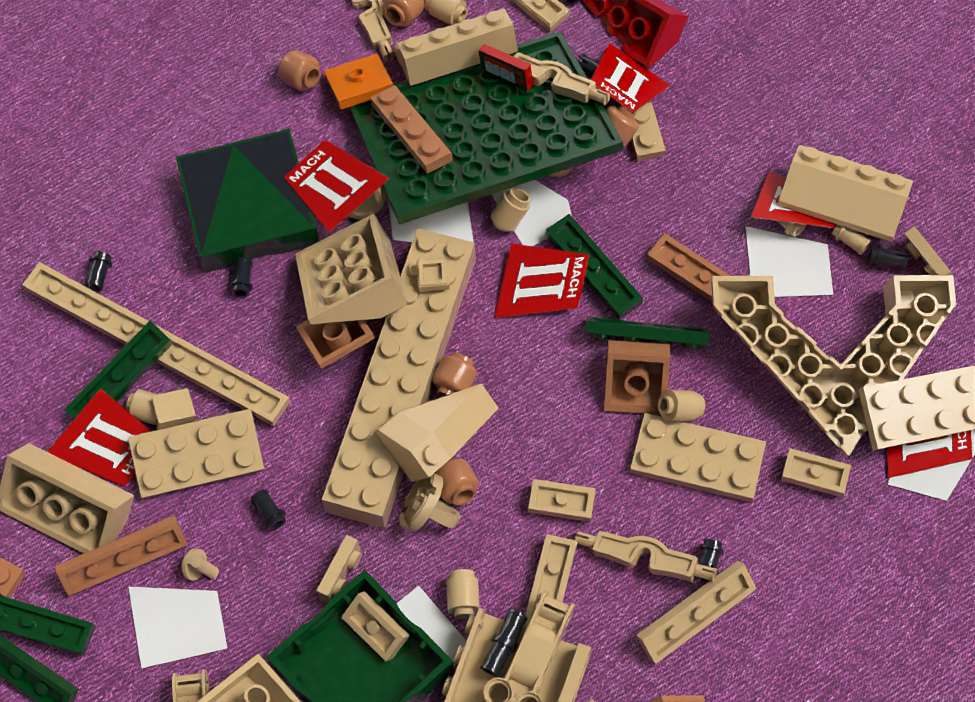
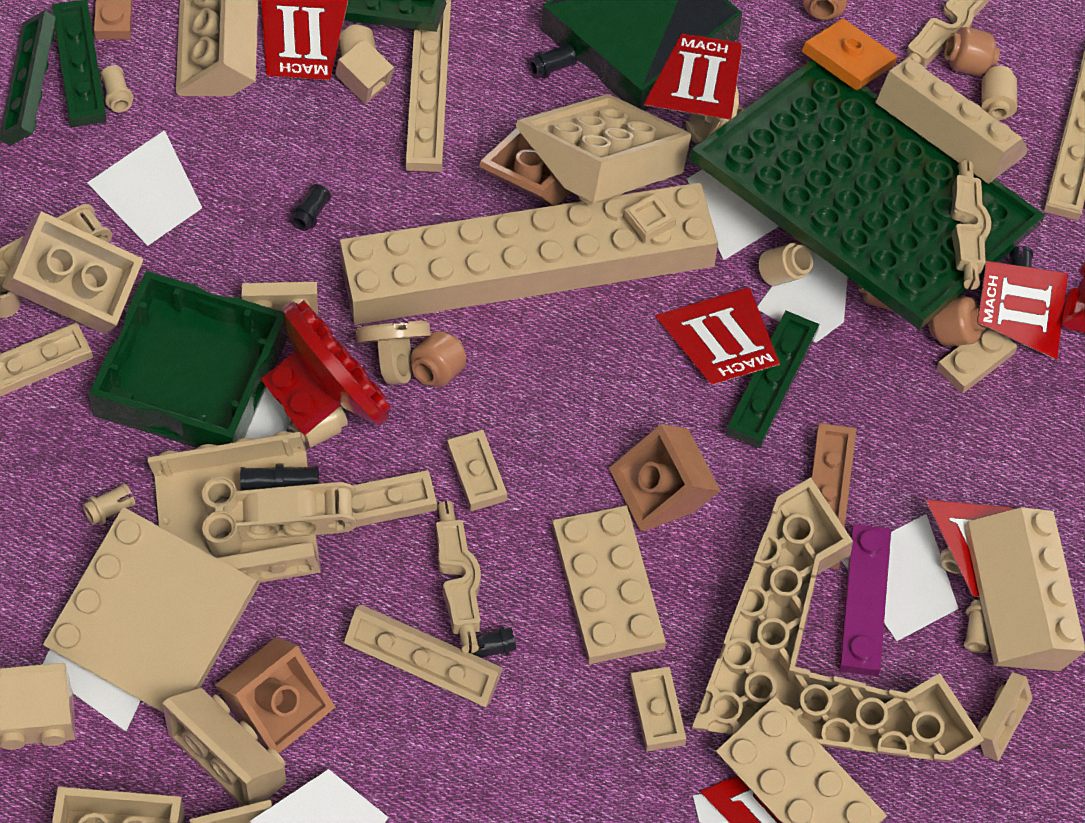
camera: 55 degrees right, 5 degrees down
(71, 604) = (118, 96): none -> tan pin
(121, 555) = (189, 104): nougat plate -> none
(196, 453) = (333, 115): tan plate -> none
(196, 564) = (216, 173): tan plate -> none
(375, 626) = (235, 357): tan plate -> none
(411, 129) = (813, 120): nougat plate -> none
(435, 431) = (476, 303): tan wedge -> none
(437, 570) = (321, 375): none -> red bracket
(454, 374) = (556, 302): nougat head -> none
(506, 67) = (950, 174): tile -> none
(659, 333) = (730, 476): dark green plate -> none
(681, 405) = (653, 533): tan brick -> none
(801, 299) = (865, 600): none -> magenta plate
(887, 258) = (976, 675): black pin -> none

